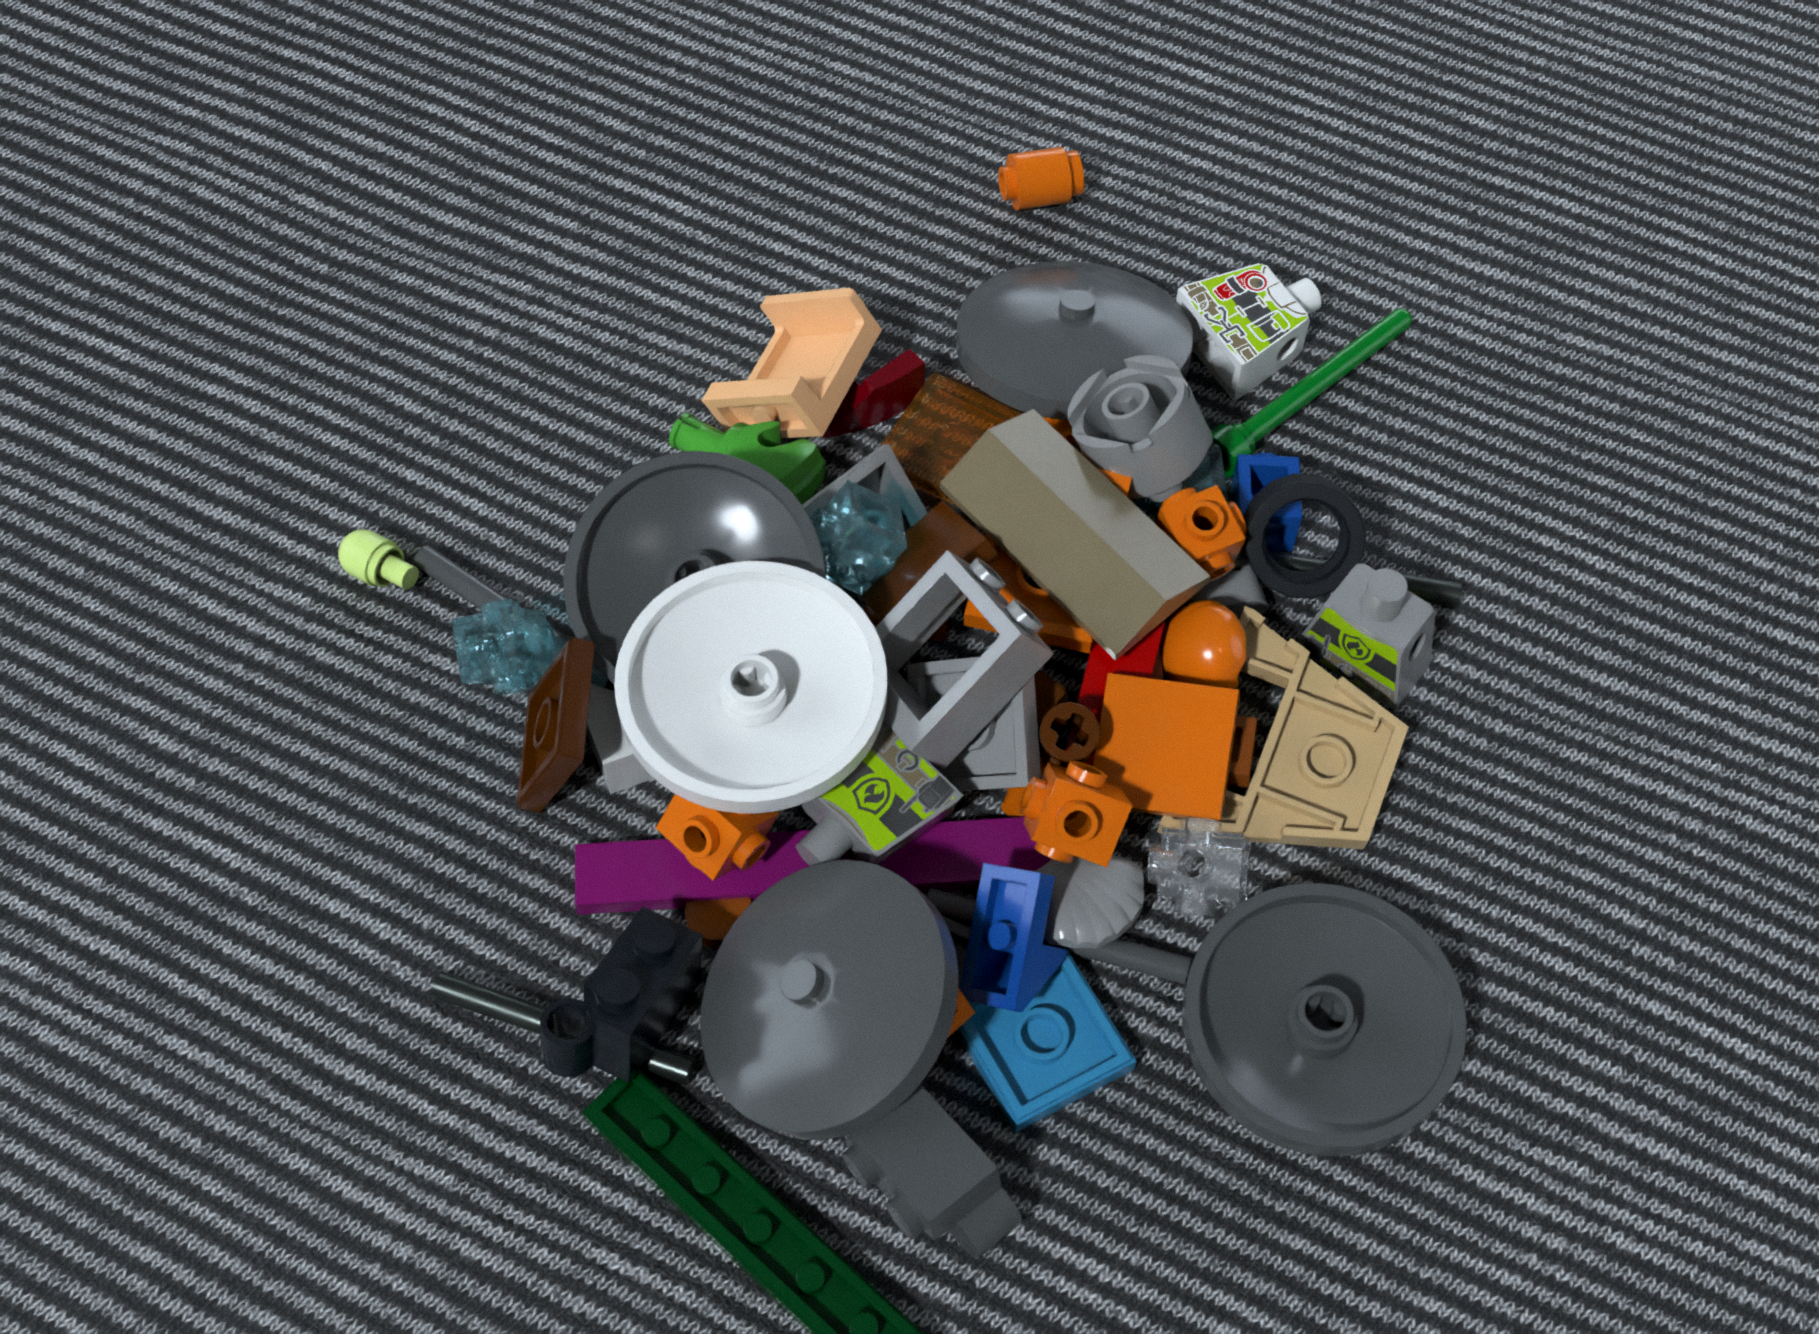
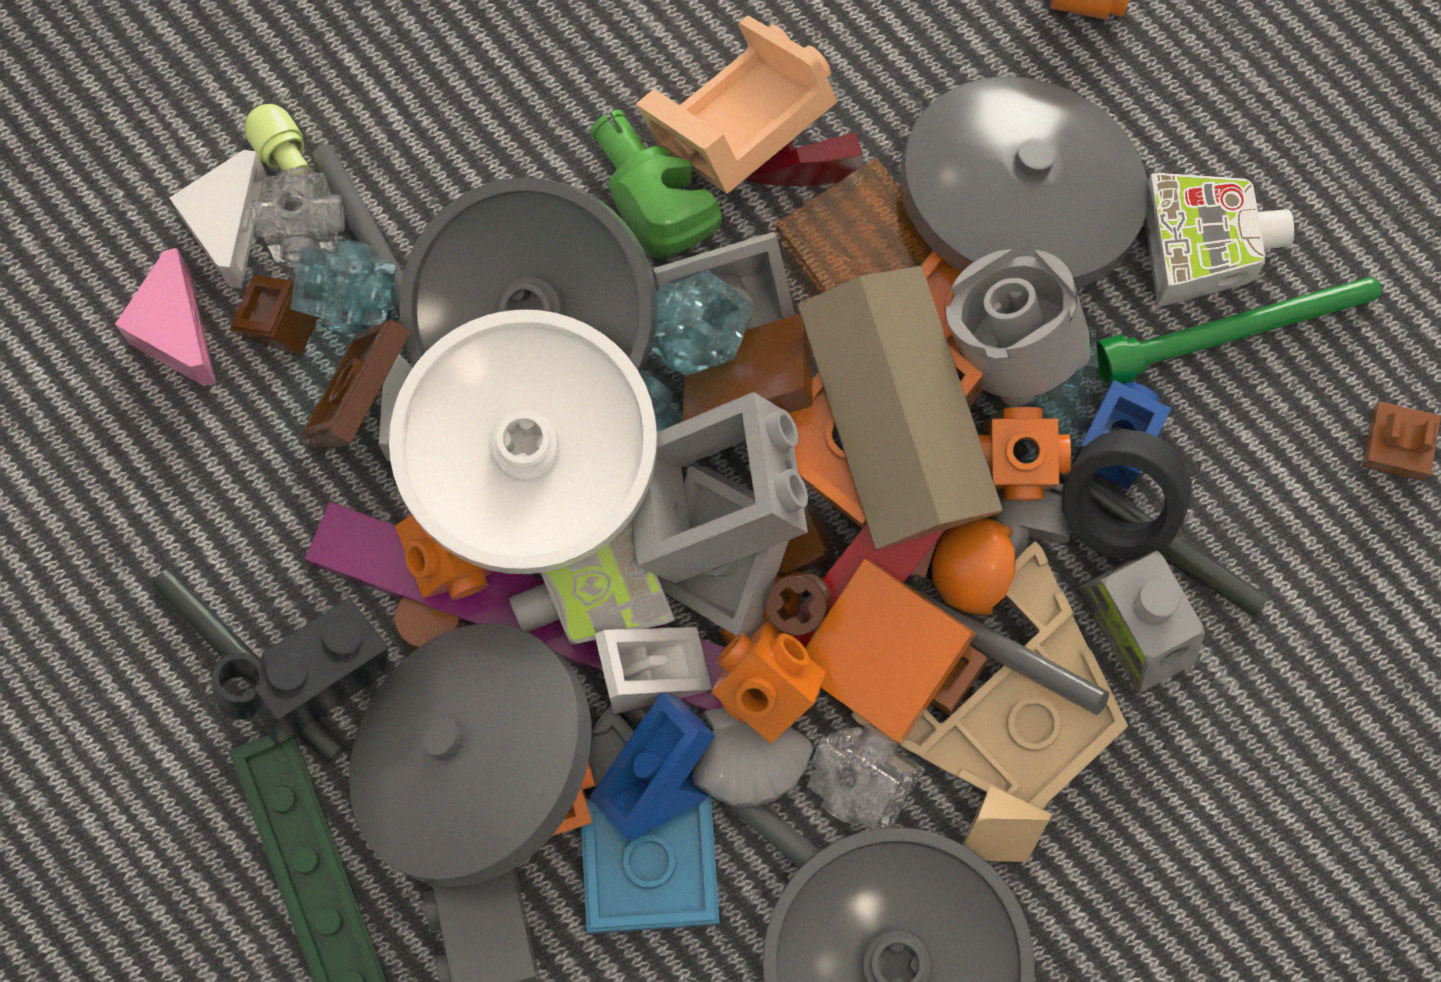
camera: 25 degrees right, 15 degrees up
(341, 752) = (167, 321): none -> bright pink slope
(349, 639) = (220, 213): none -> white slope
(423, 604) = (297, 213): none -> clear brick
(442, 708) = (267, 316): none -> reddish brown slope
(947, 855) = (651, 661): none -> white slope
(1312, 704) = (1029, 662): none -> dark grey bar
(1351, 857) = (1005, 828): none -> tan slope
(1496, 421) = (1401, 441): none -> dark orange tile

